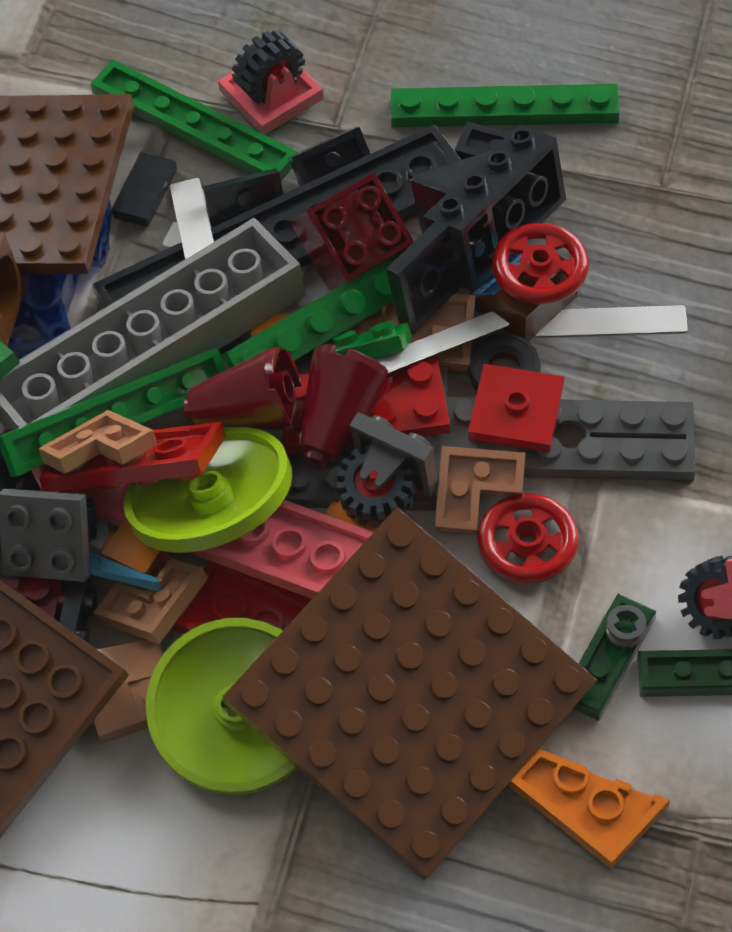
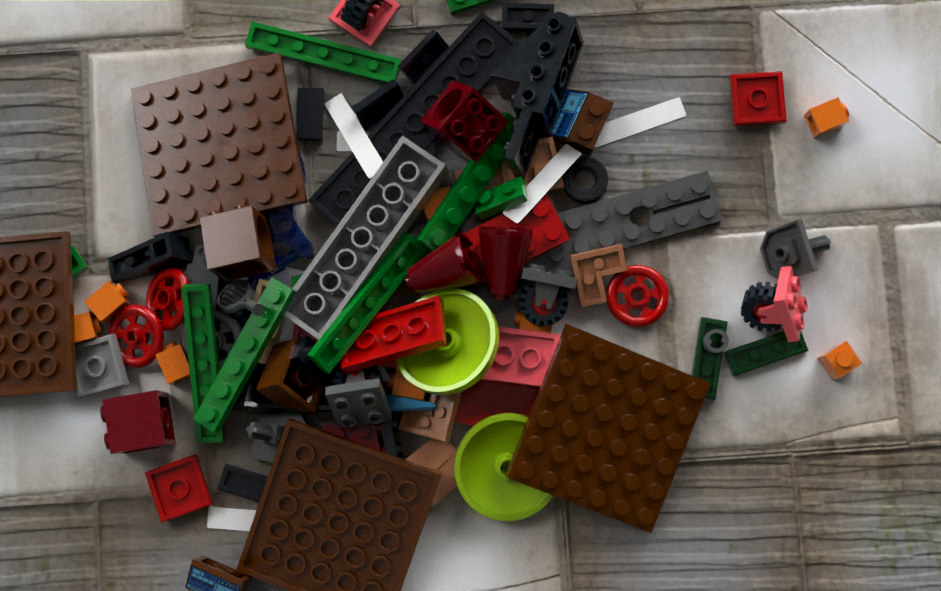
camera: 20 degrees left, 25 degrees up
(104, 435) = (369, 331): nougat plate -> none
(516, 408) = (605, 212): red plate -> none
(542, 273) = (613, 108): red plate -> none
(592, 810) = (727, 459): orange wing -> none

